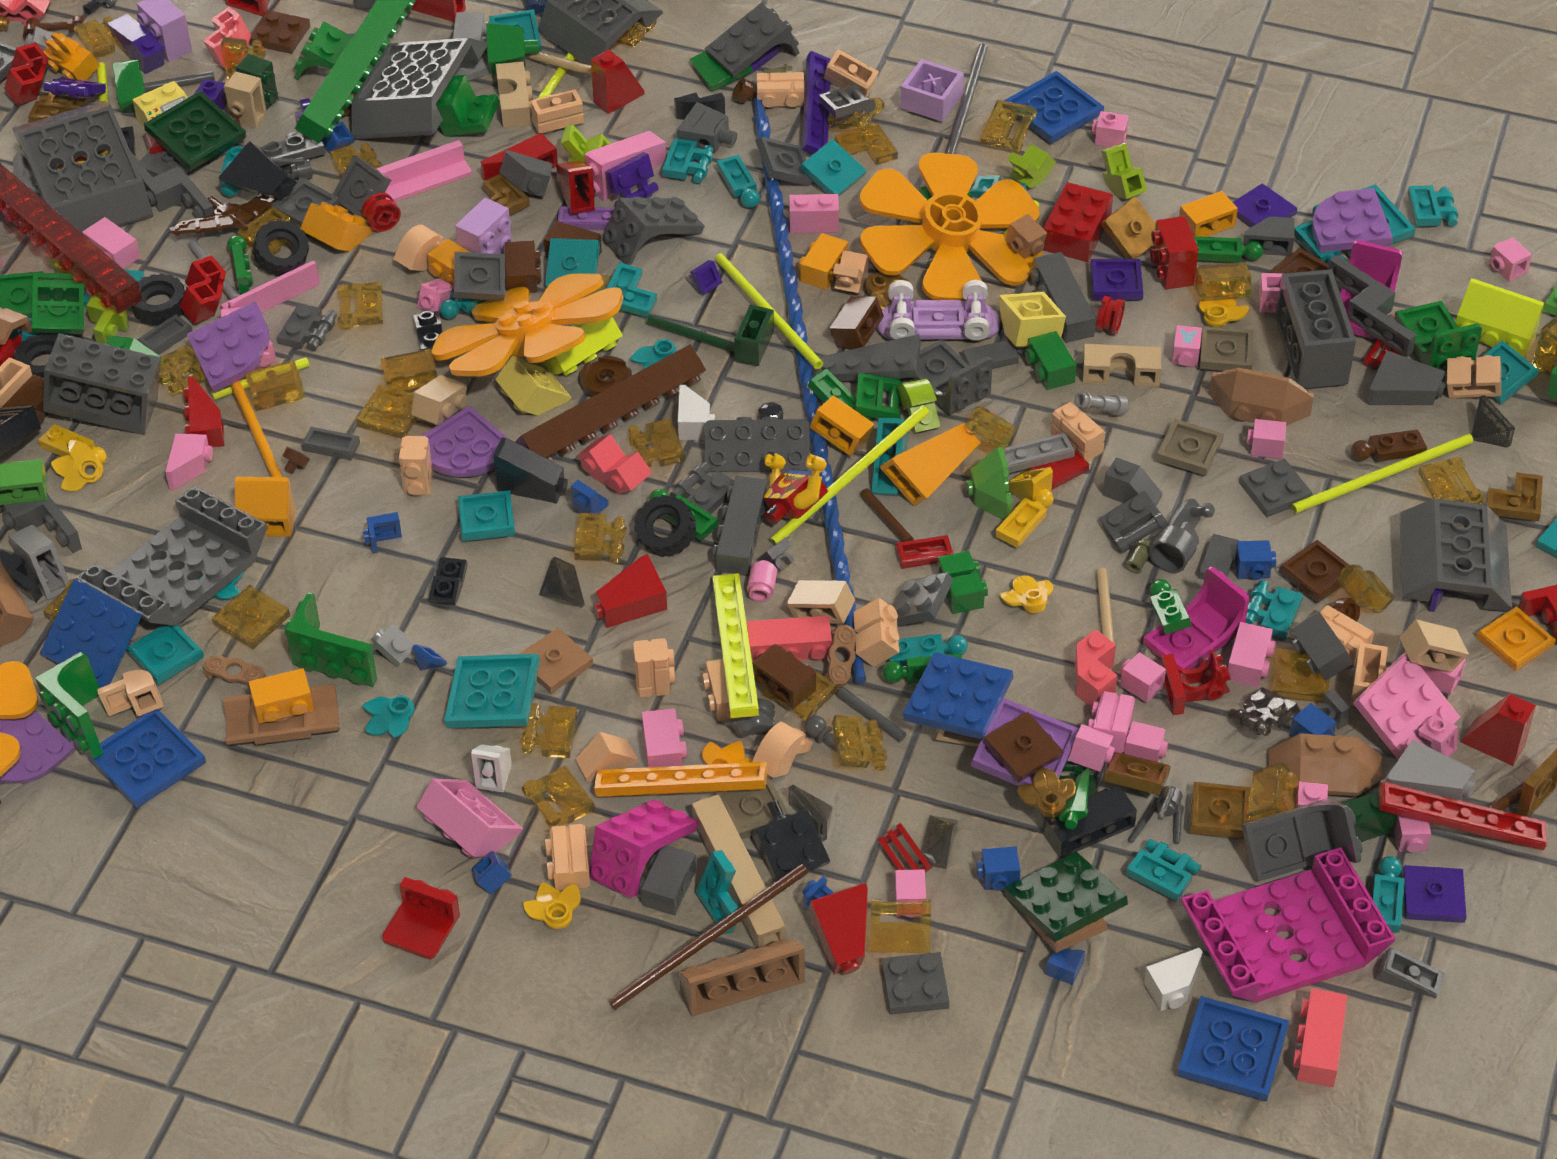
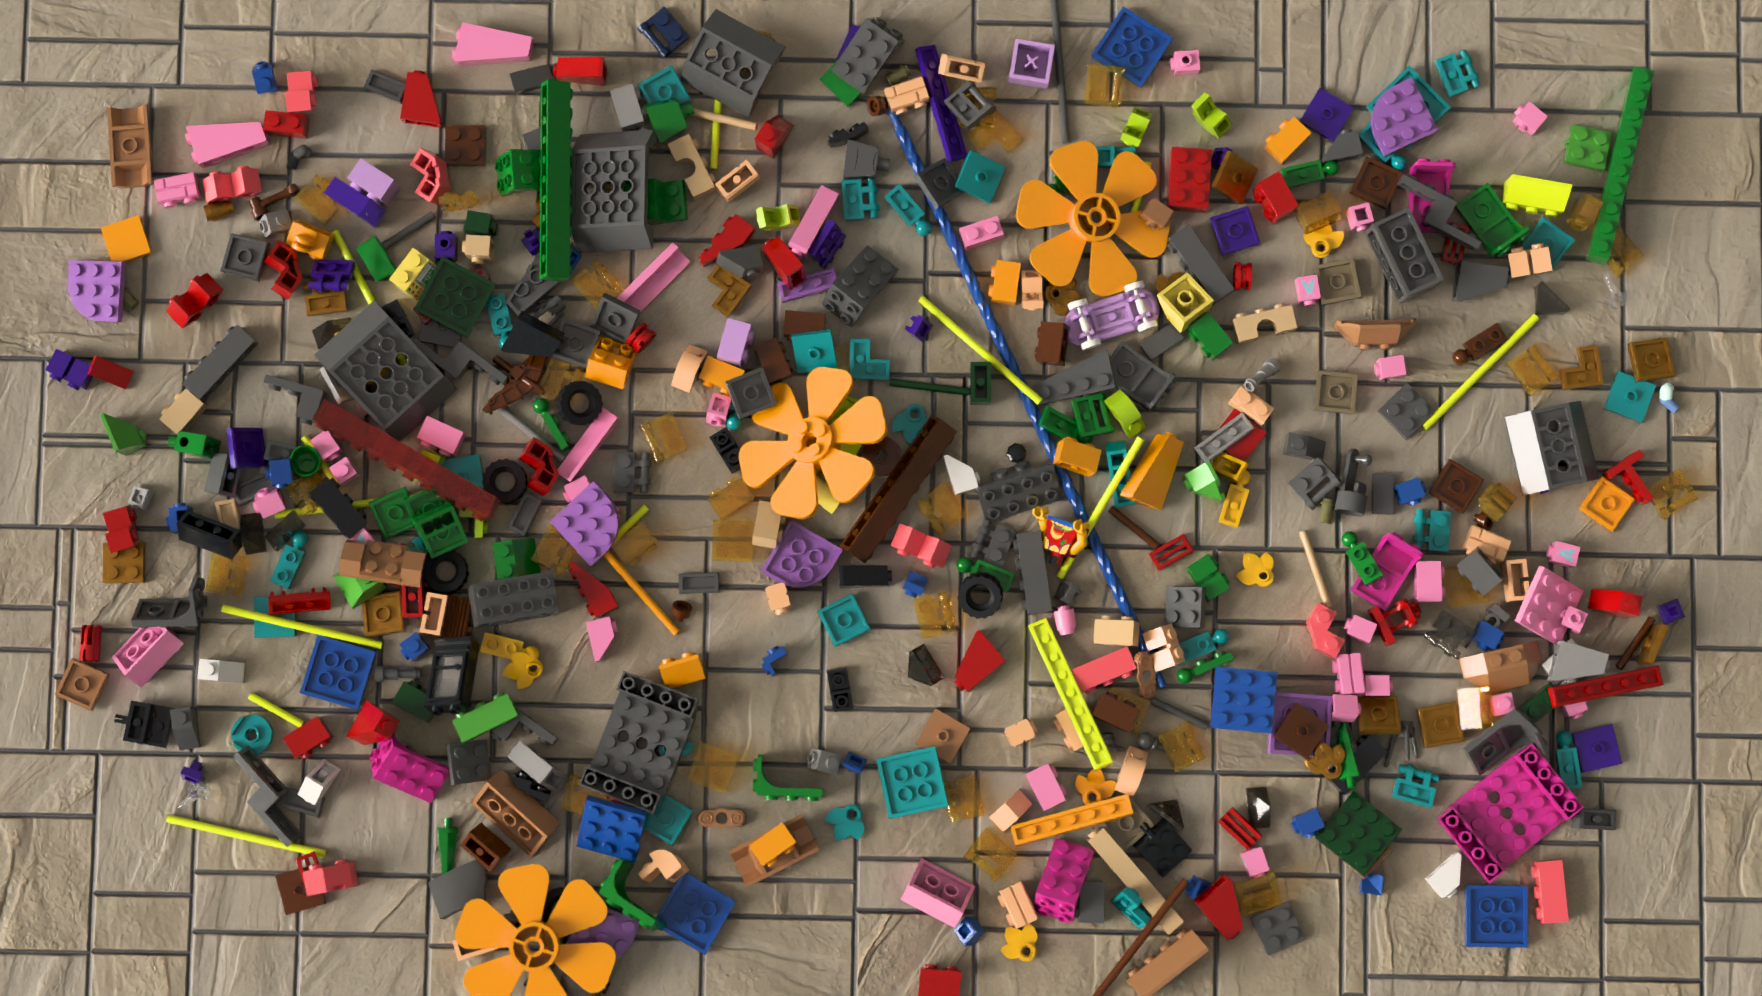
camera: 20 degrees left, 35 degrees up
(491, 767) = (938, 846): white slope -> none
(998, 431) = (1194, 426): clear yellow plate -> none
(1433, 645) = (1560, 556): tan brick -> none

